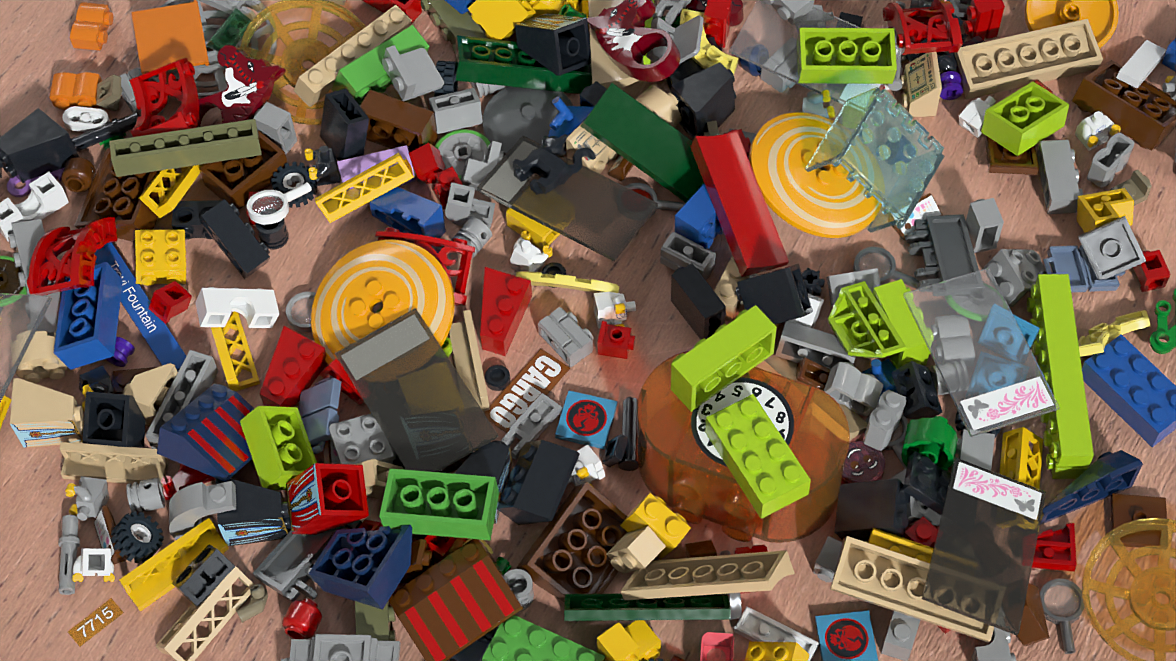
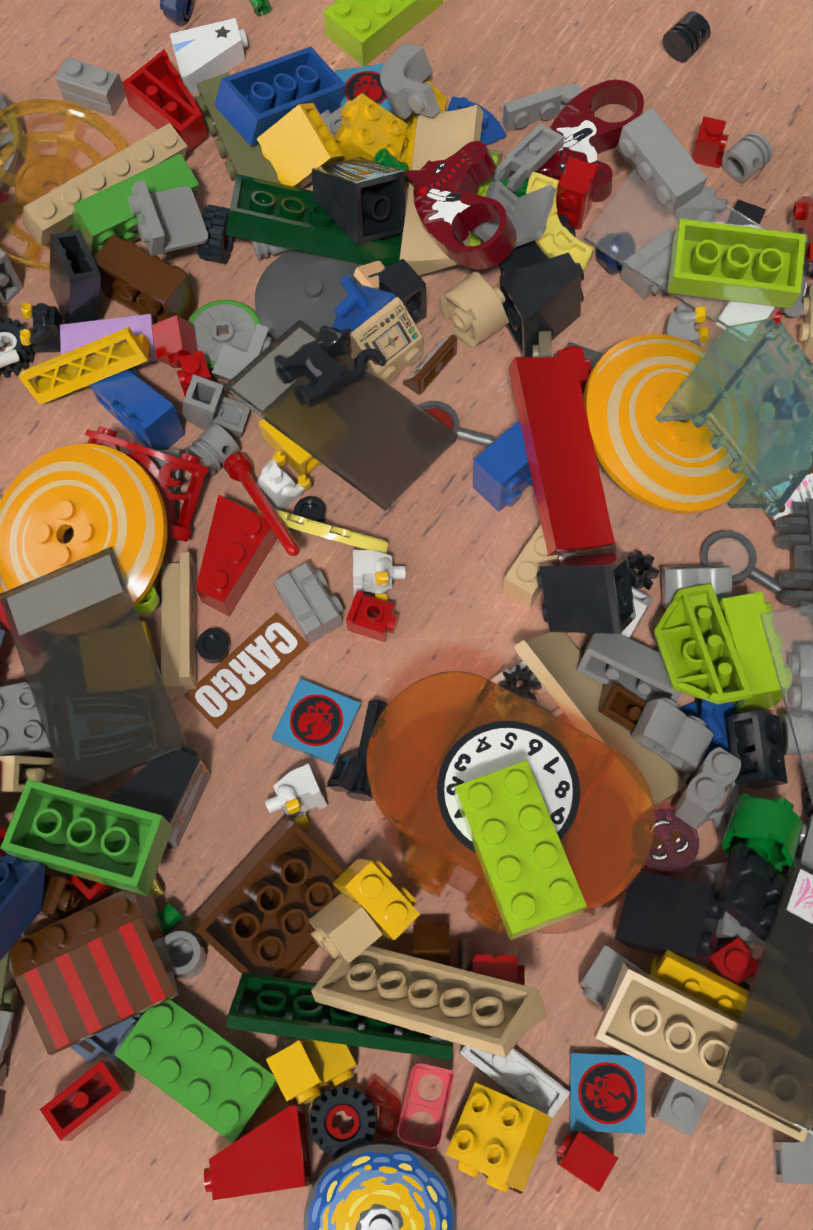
camera: 10 degrees right, 10 degrees up
(456, 110) = (222, 274): light grey brick -> none
(495, 249) = (240, 469): none -> red piece
(532, 423) = (243, 720): light grey hinge -> none
(537, 482) = (234, 808): black slope -> none
(571, 97) = (368, 274): none -> light nougat tile
(645, 142) = (452, 349): dark green arch -> none
(681, 252) = (484, 515): light grey brick -> none
(697, 301) = (486, 582): black brick -> none
(722, 357) = (494, 696): lime brick -> none

